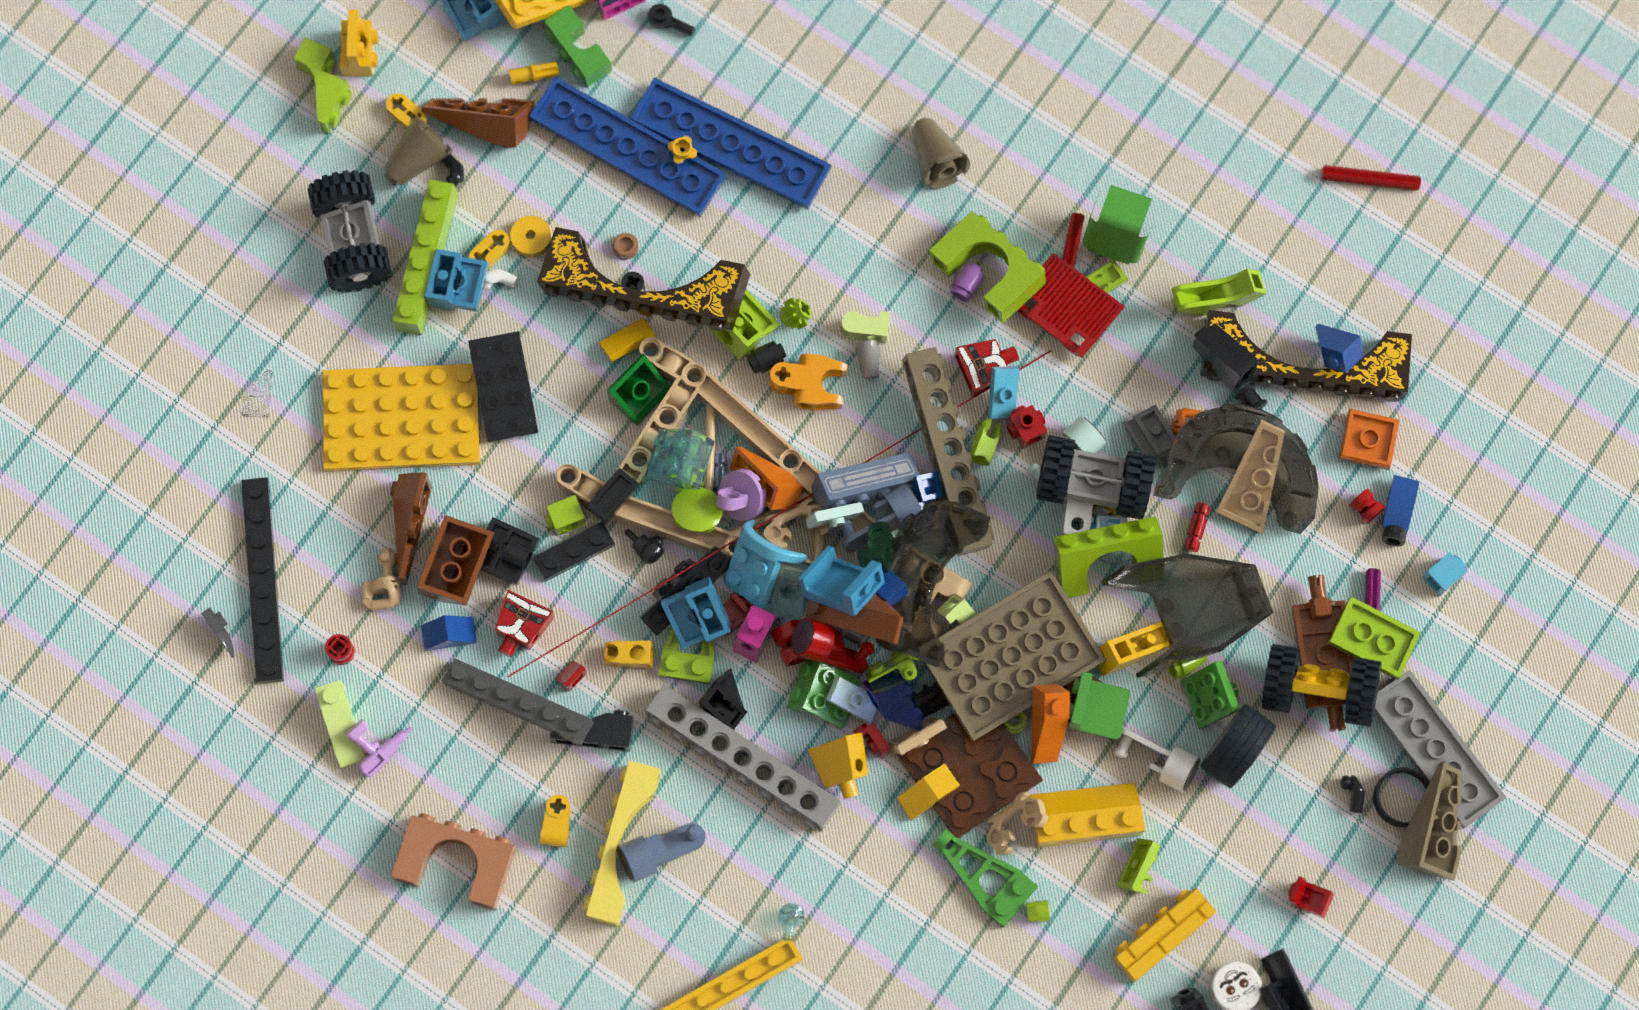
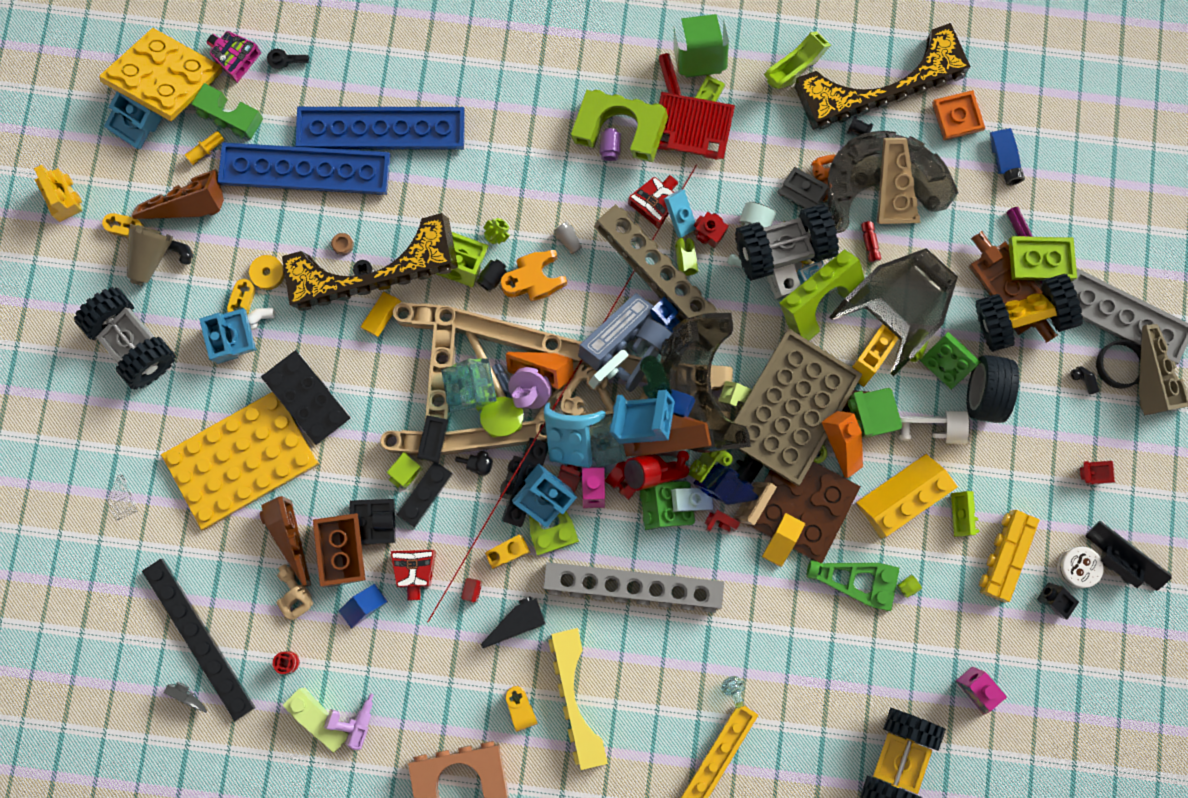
camera: 25 degrees left, 5 degrees up
(331, 91) = (55, 238): lime arch -> none
(429, 235) = (189, 309): lime brick -> none
(517, 701) = (443, 632): dark grey plate -> none
(638, 390) = (409, 348): green slope -> none
(643, 856) = (599, 701): sand blue piece -> none
(682, 142) = (347, 144): yellow plate -> none
(724, 701) = (597, 550): black slope -> none
(841, 763) = (709, 552): yellow torso -> none
(865, 327) = (553, 216): yellowish green leg -> none
(938, 154) = (539, 60): dark tan cone -> none
(1032, 810) = (850, 545): tan helmet -> none
(1225, 356) = (830, 104): black slope -> none
(1339, 348) = (904, 59): blue slope -> none
(1362, 503) = (983, 164): red wheel -> none
(1445, 573) = (1064, 185): medium azure brick -> none

